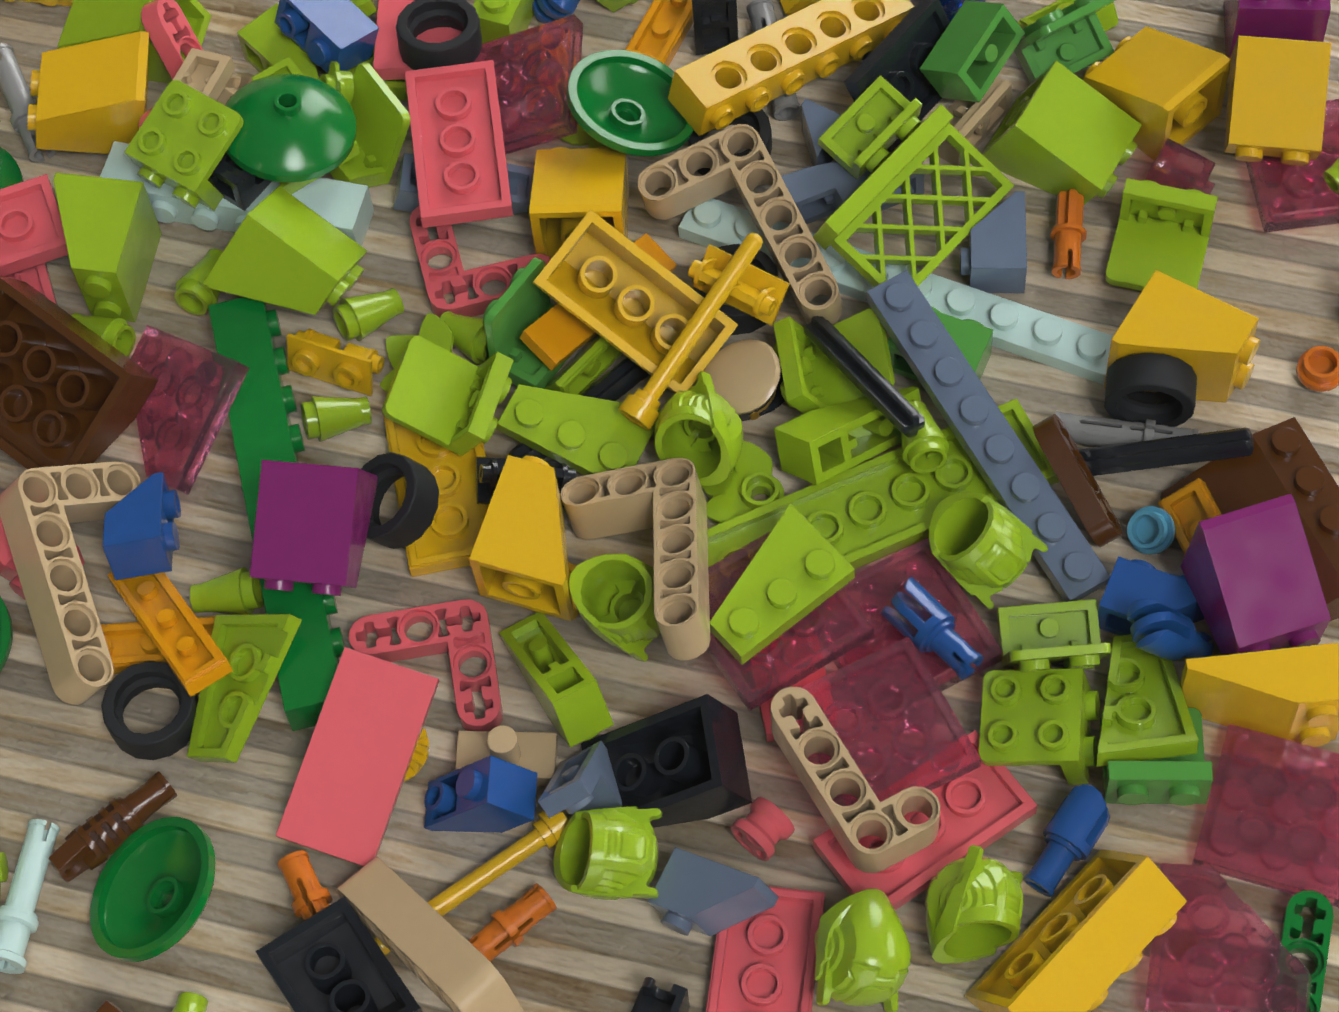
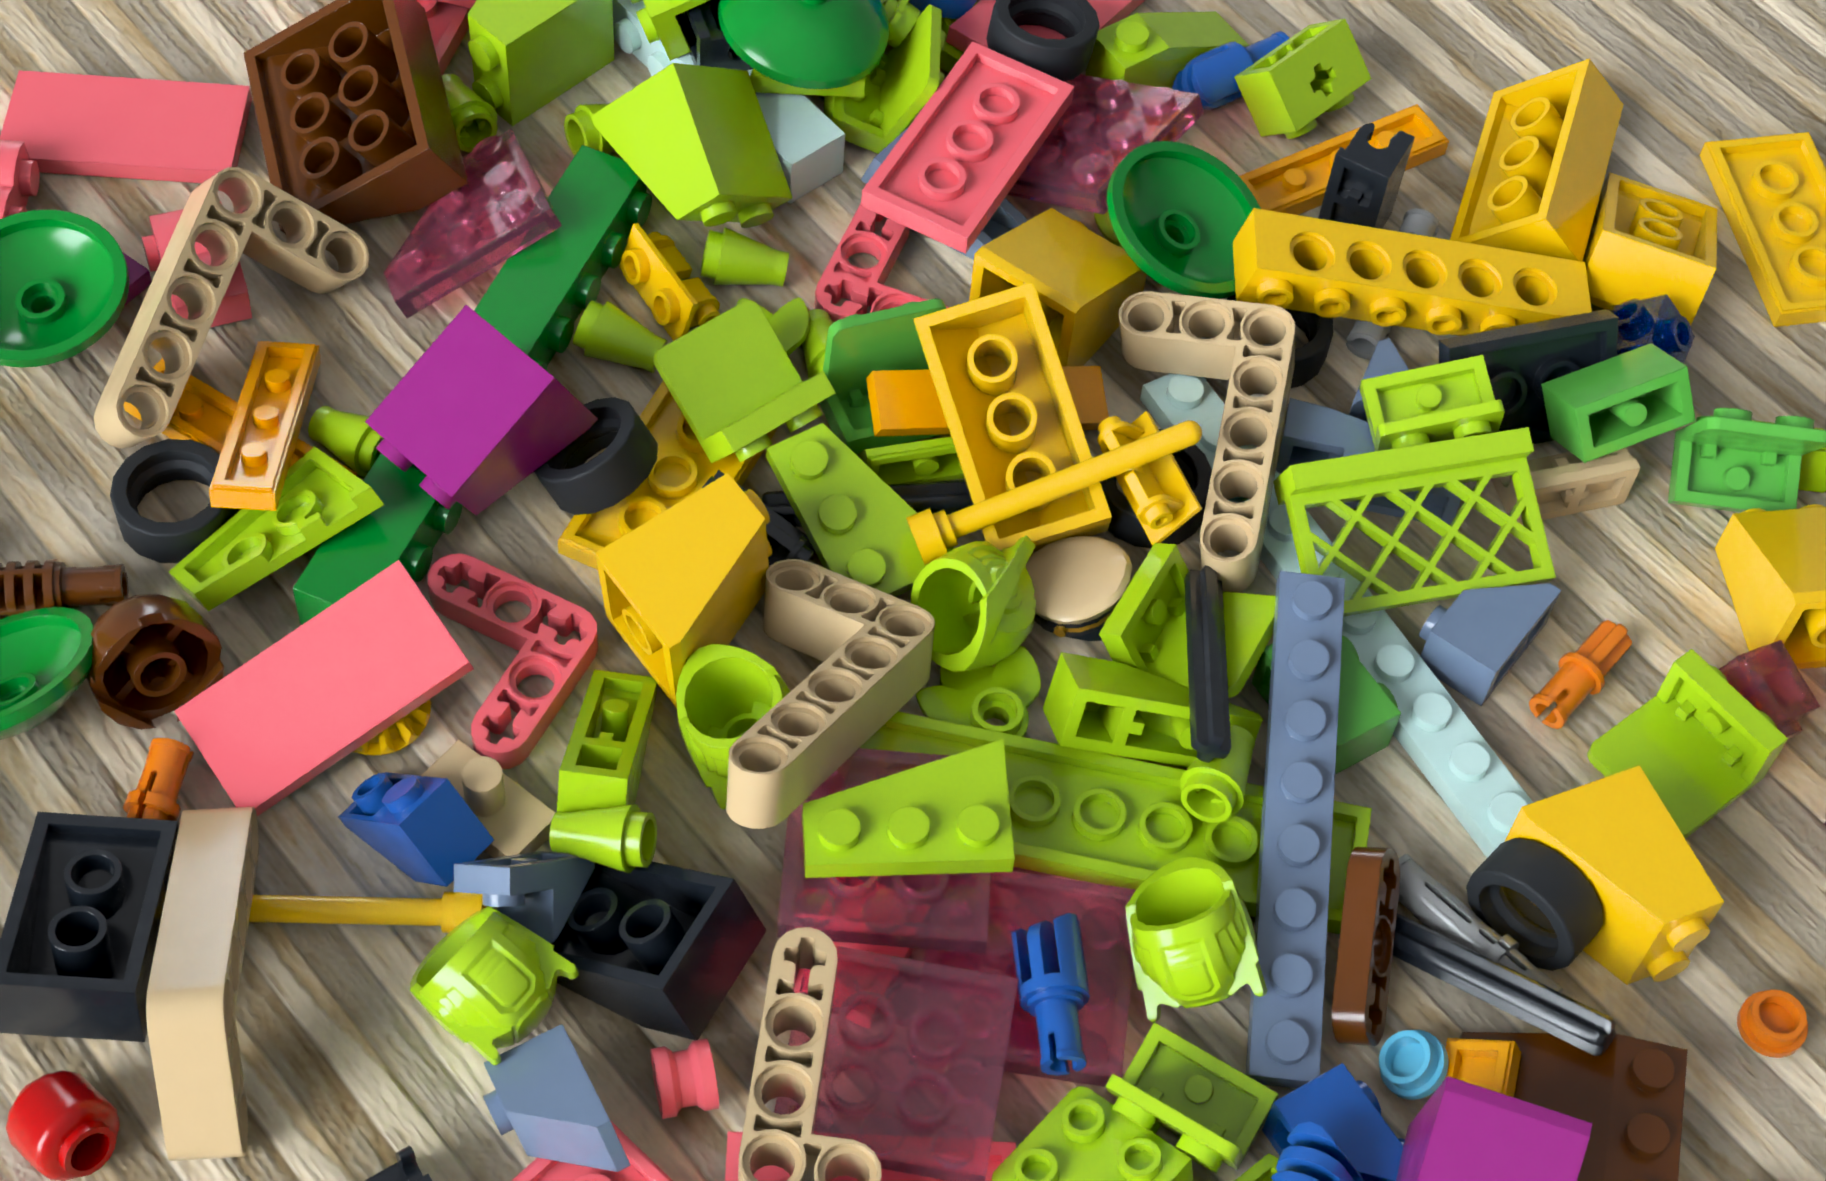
camera: 25 degrees right, 5 degrees down
(142, 530) = (323, 316): blue slope -> none
(236, 812) = (151, 658): none -> reddish brown cylinder
(511, 924) = (322, 984): orange pin -> none
(606, 723) = (608, 836): none -> lime cone
(1063, 136) = (1659, 564): lime slope -> none

